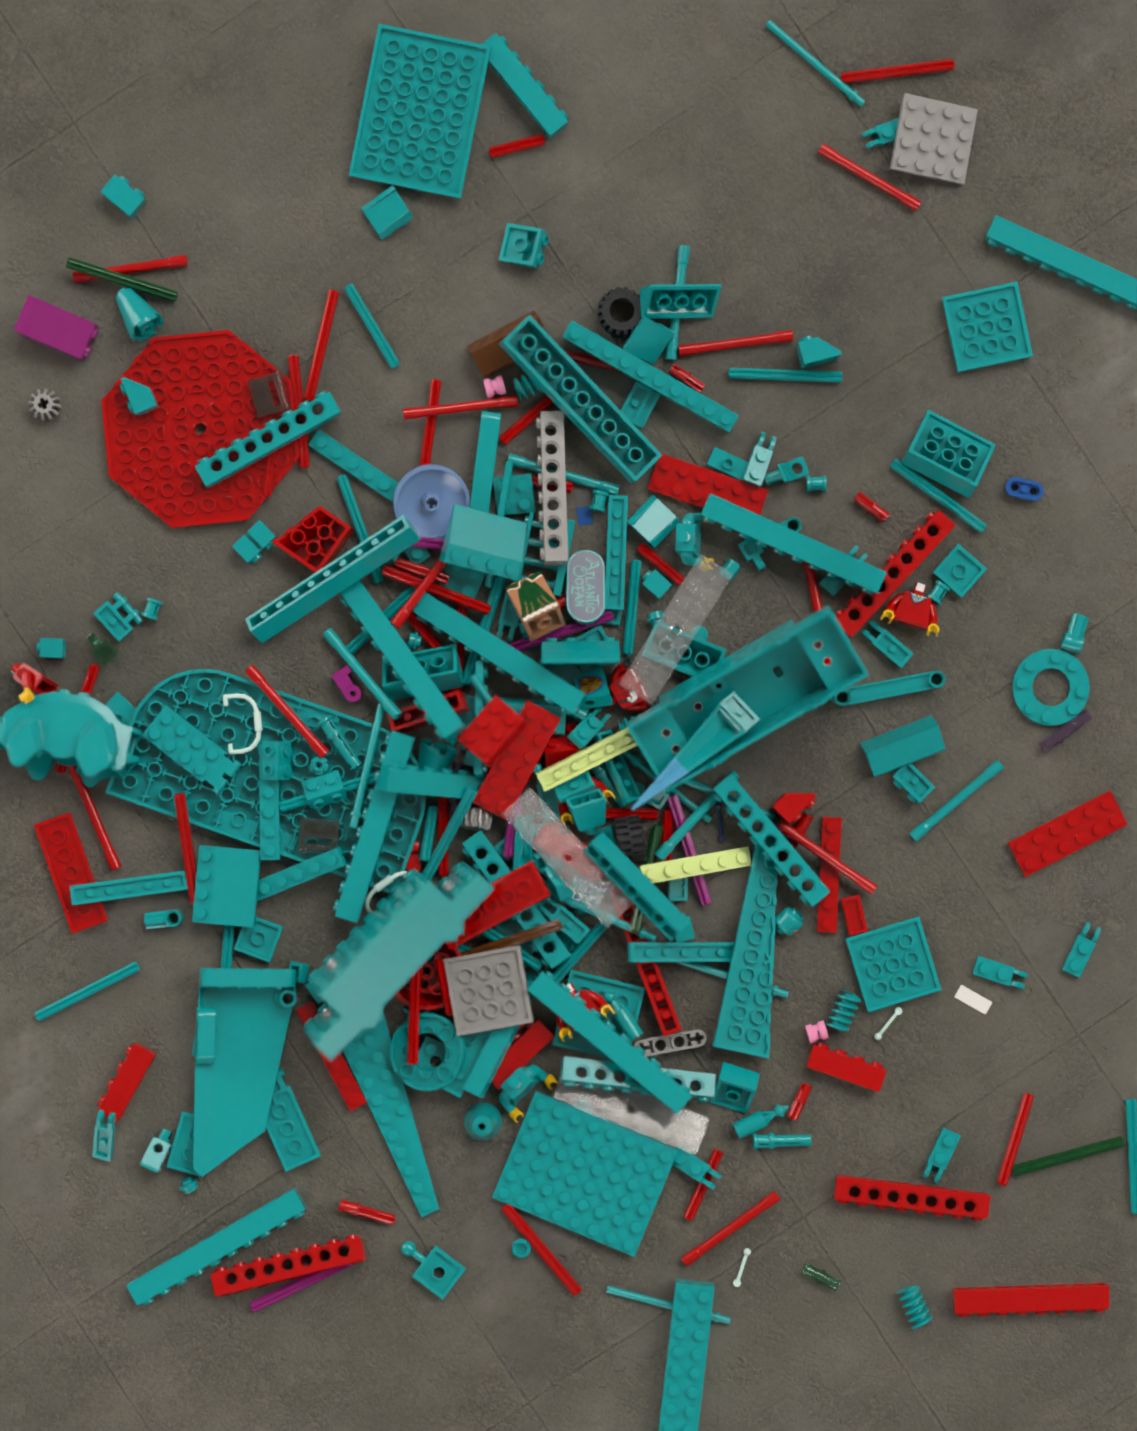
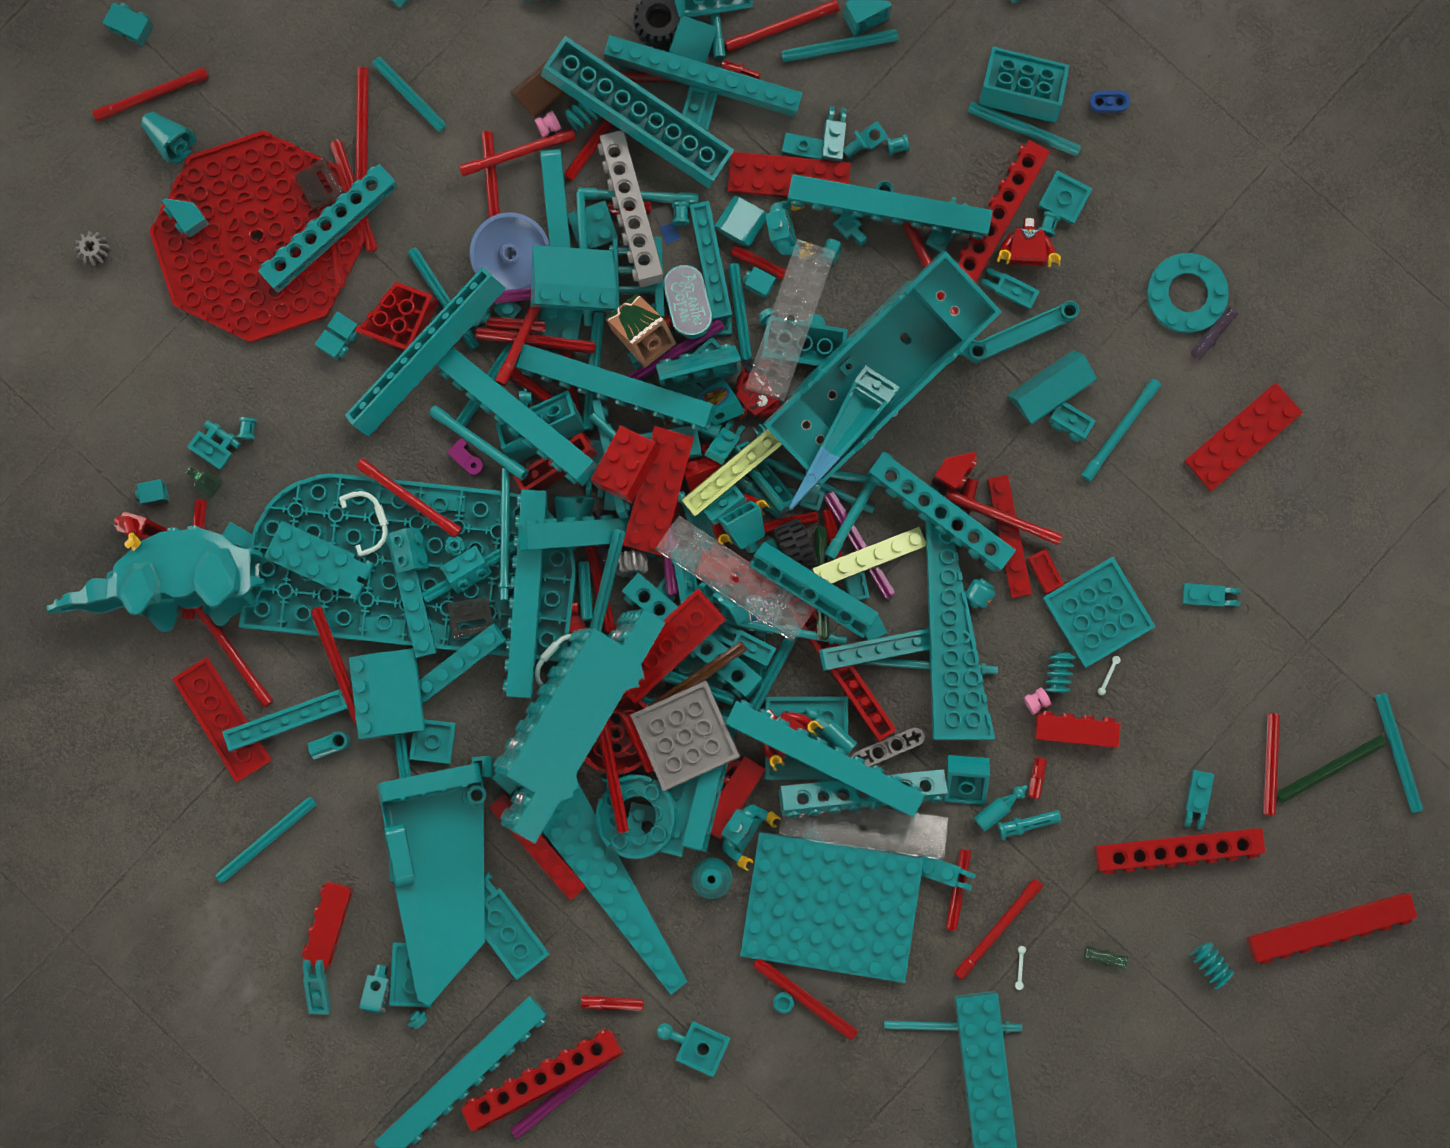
camera: 10 degrees left, 5 degrees down
(56, 328) = (86, 168): magenta slope -> none
(121, 279) = (143, 105): dark green axle -> none
(334, 734) = (463, 510): teal pin -> none
(353, 464) = (421, 236): teal plate -> none
(508, 618) = (615, 351): teal hinge -> none
(721, 837) = (888, 524): dark blue hinge -> none
(871, 507) = (959, 155): red axle -> none
(973, 999) = (1190, 630): white sticker -> none
(1073, 638) = (1198, 238): teal piece -> none
(1080, 951) = (1288, 554): teal hinge -> none

